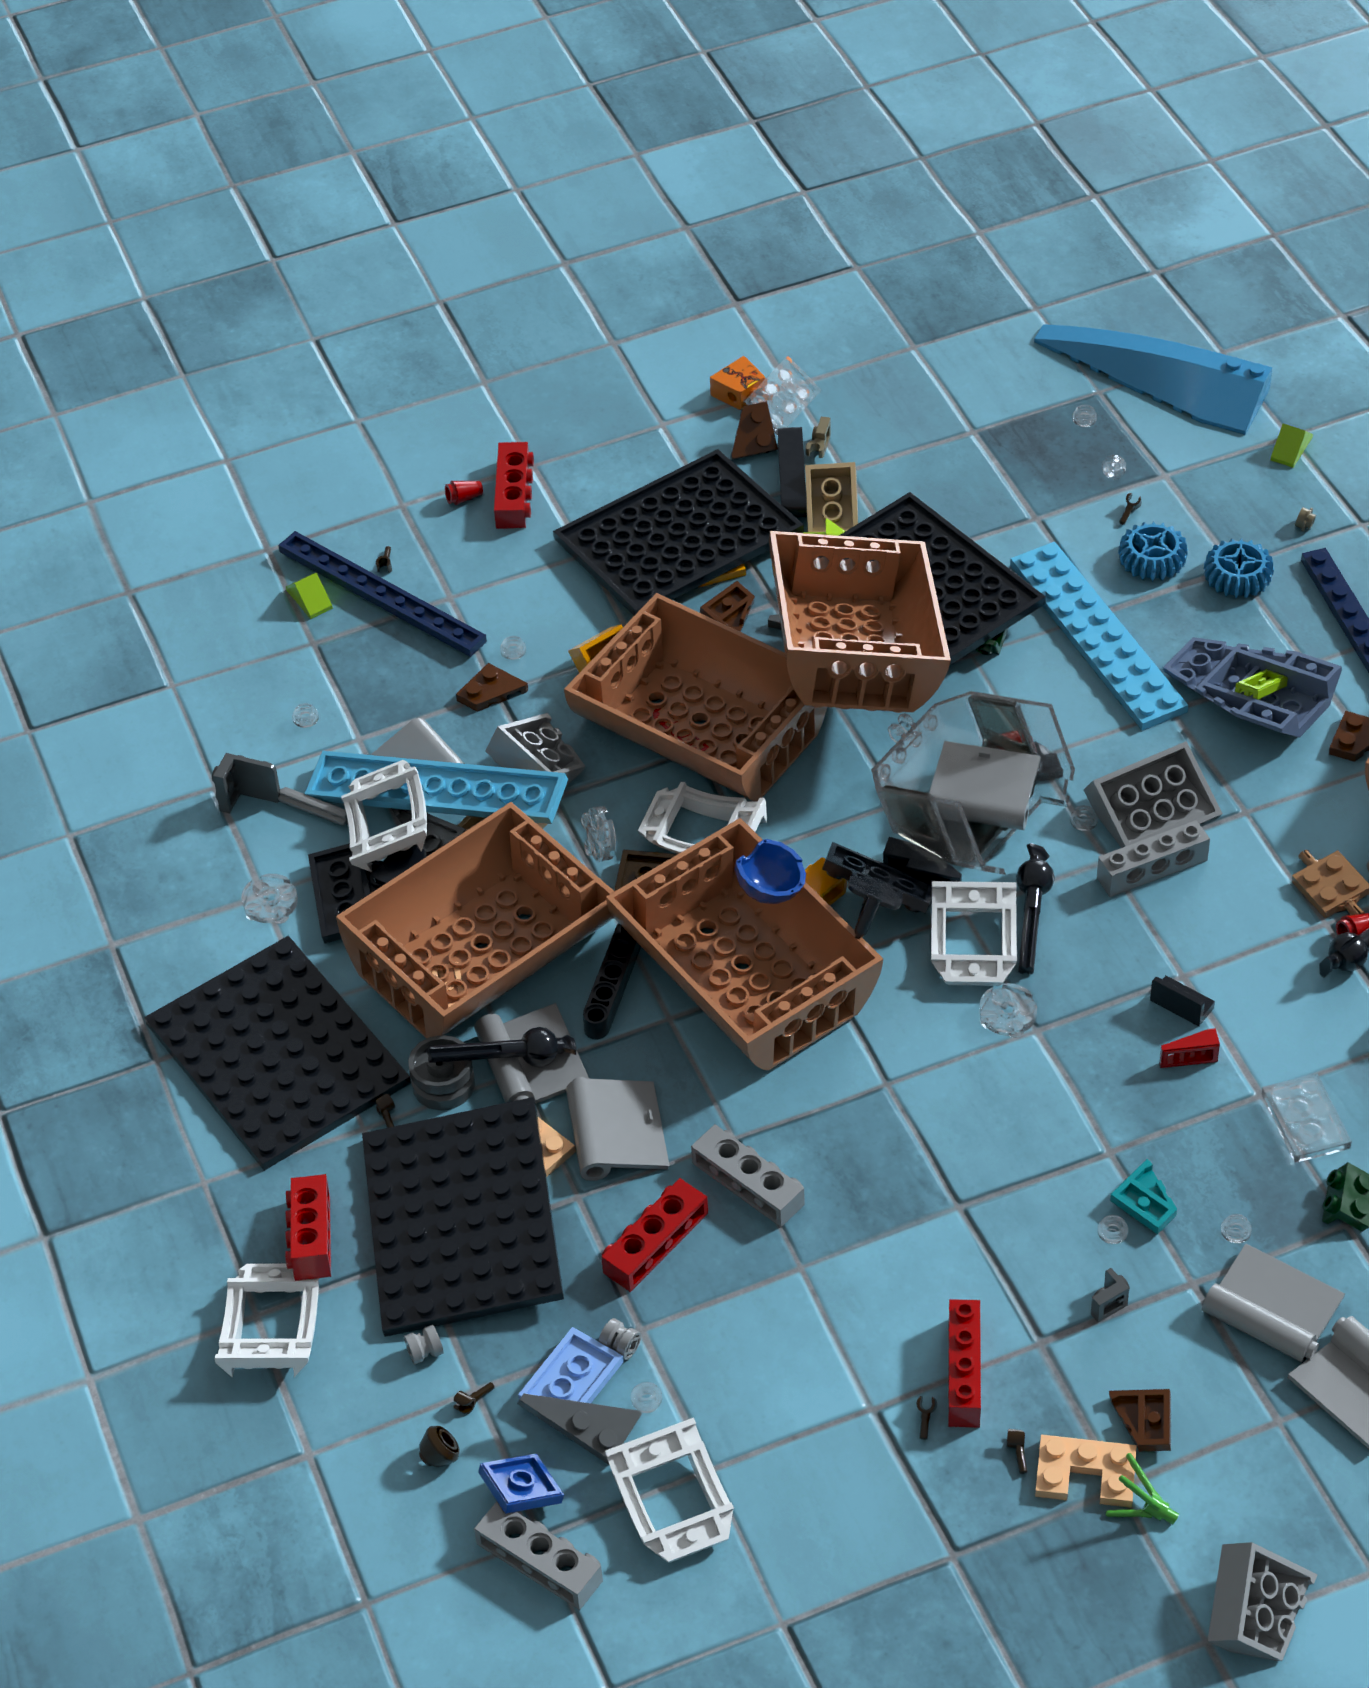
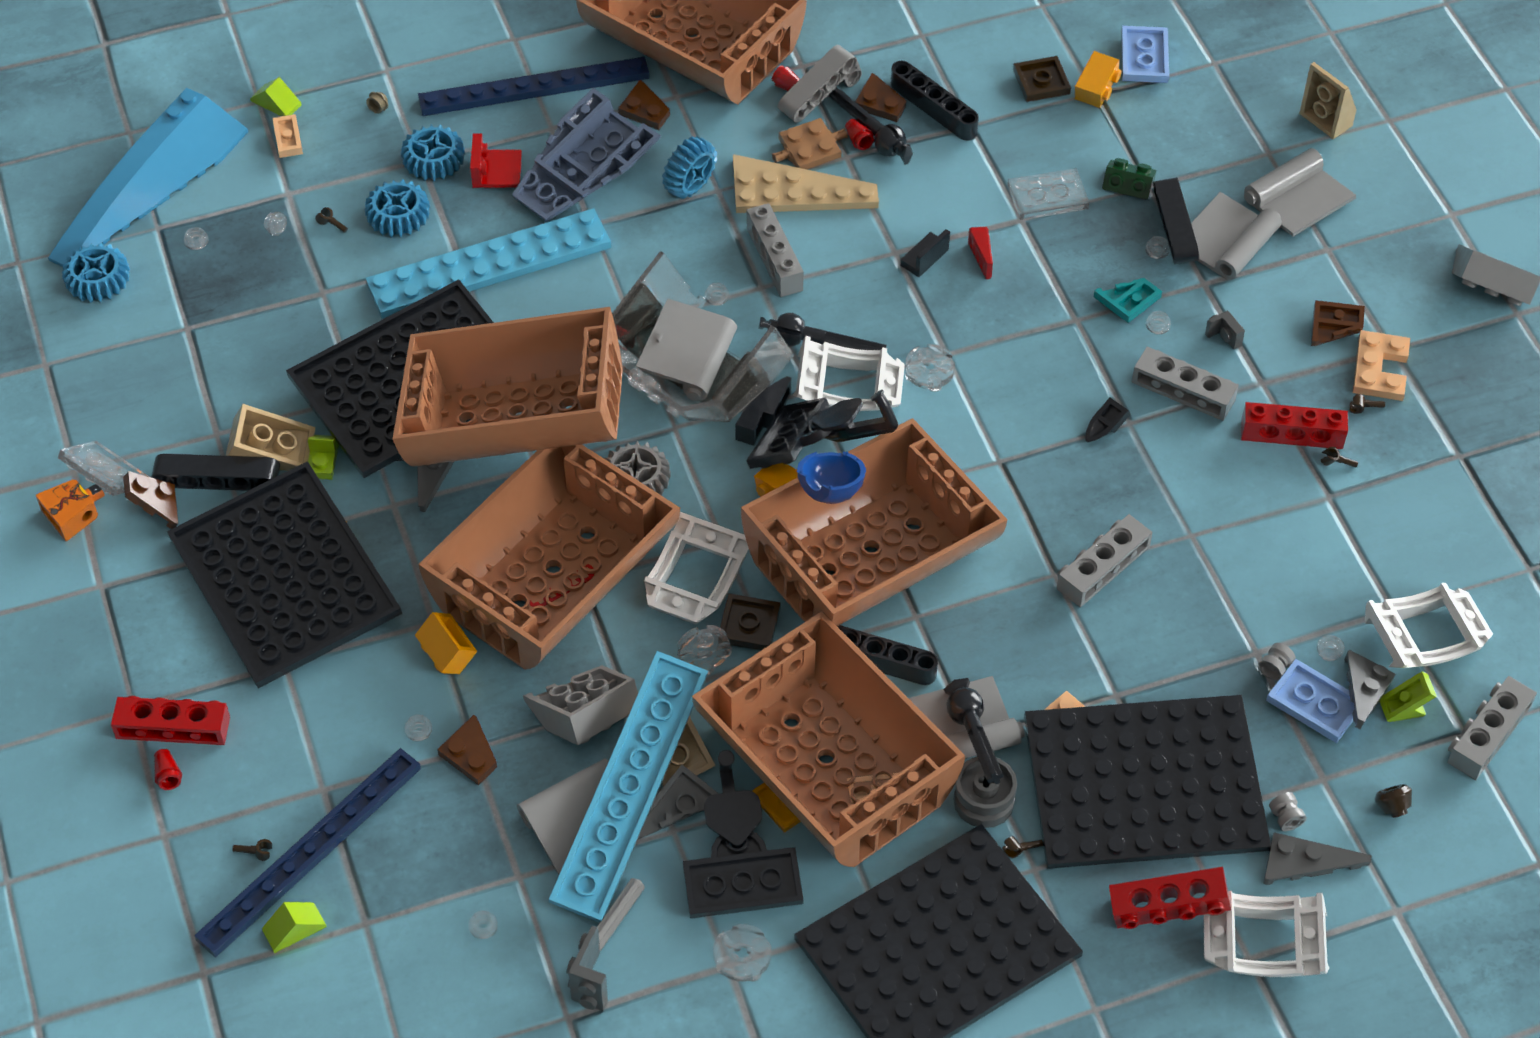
camera: 90 degrees left, 5 degrees up
(367, 848) = (709, 818): white wedge -> none
(371, 1362) = (1299, 857): none -> dark grey wing
(466, 1402) = (1341, 780): dark brown hand -> none
(520, 1483) = (1430, 735): blue tile -> none
(573, 1471) = (1408, 698): none -> lime slope
(615, 1126) = (1046, 659): light grey door -> none
(651, 1249) = (1161, 618): red brick -> none
(730, 606) = (403, 537): reddish brown wing -> none
(808, 772) = (650, 463): none -> light grey gear
(820, 437) = (170, 443): dark tan plate -> none
(952, 1177) = (1106, 419): none -> black plate
(1024, 354) = (96, 272): none -> dark azure gear
(1029, 1214) = (1185, 383): none -> light grey brick
(1153, 796) = (702, 243): light grey slope -> none
(1153, 1505) = (1412, 326): bright green plant -> none
(1231, 613) = (494, 167): none -> red bracket
(1238, 458) = (287, 136): none -> light nougat plate
(1253, 769) = (689, 167): none -> dark azure gear
(1259, 869) = (797, 188): none -> tan wing
(1260, 684) = (588, 153): lime tile -> none
(1274, 1238) = (1176, 220): none -> black beam

